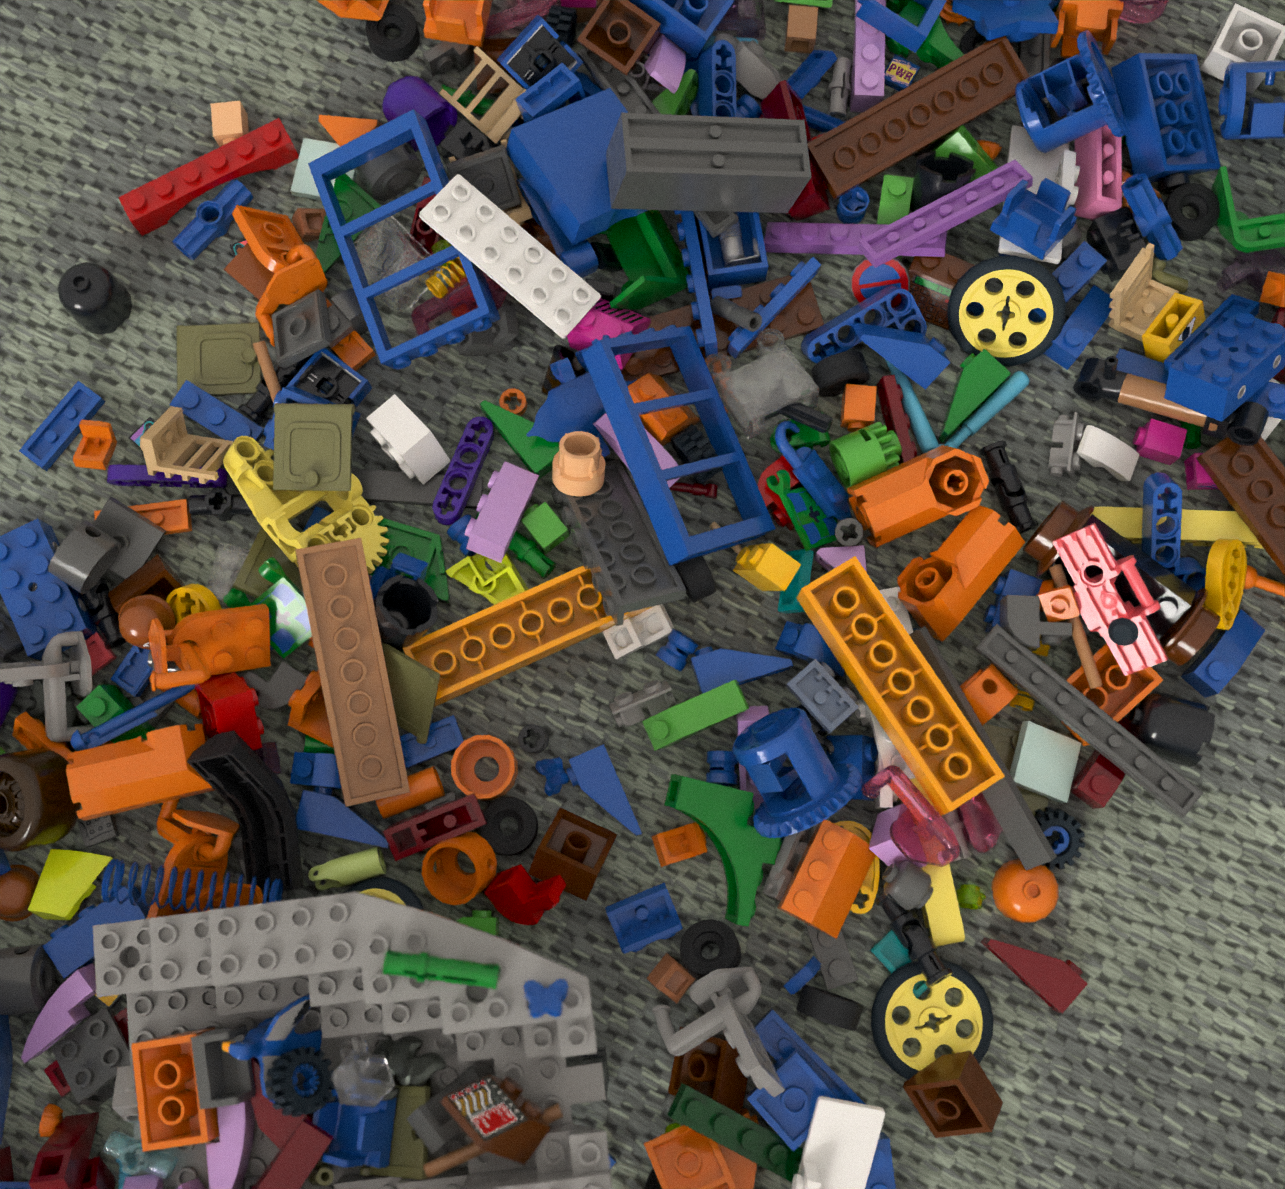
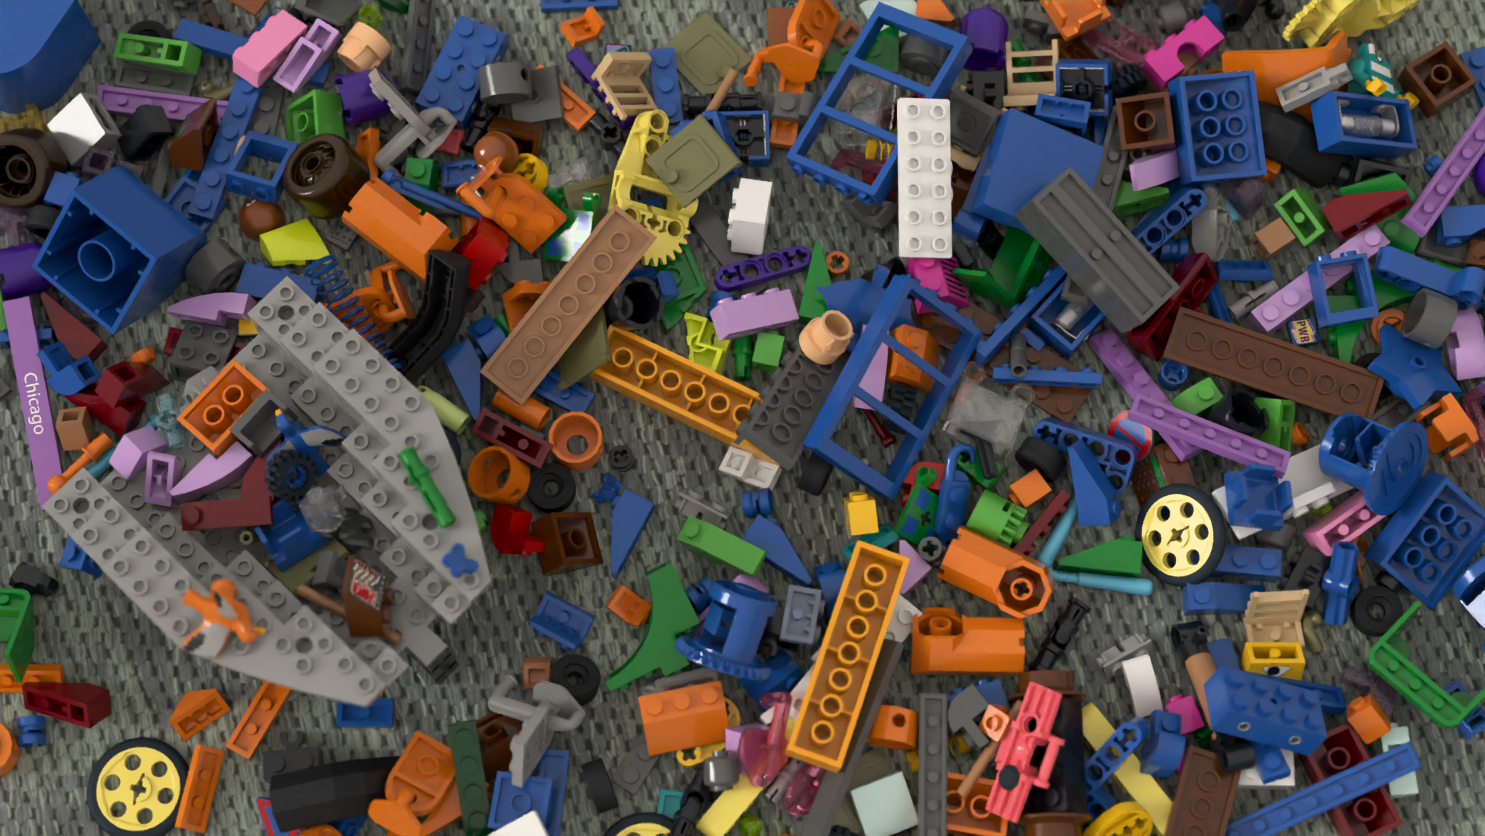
camera: 50 degrees right, 5 degrees down
(301, 329) = (767, 89): dark grey tile -> none
(802, 975) = (607, 753): blue tile -> none
(1189, 473) = (1165, 747): none -> blue brick

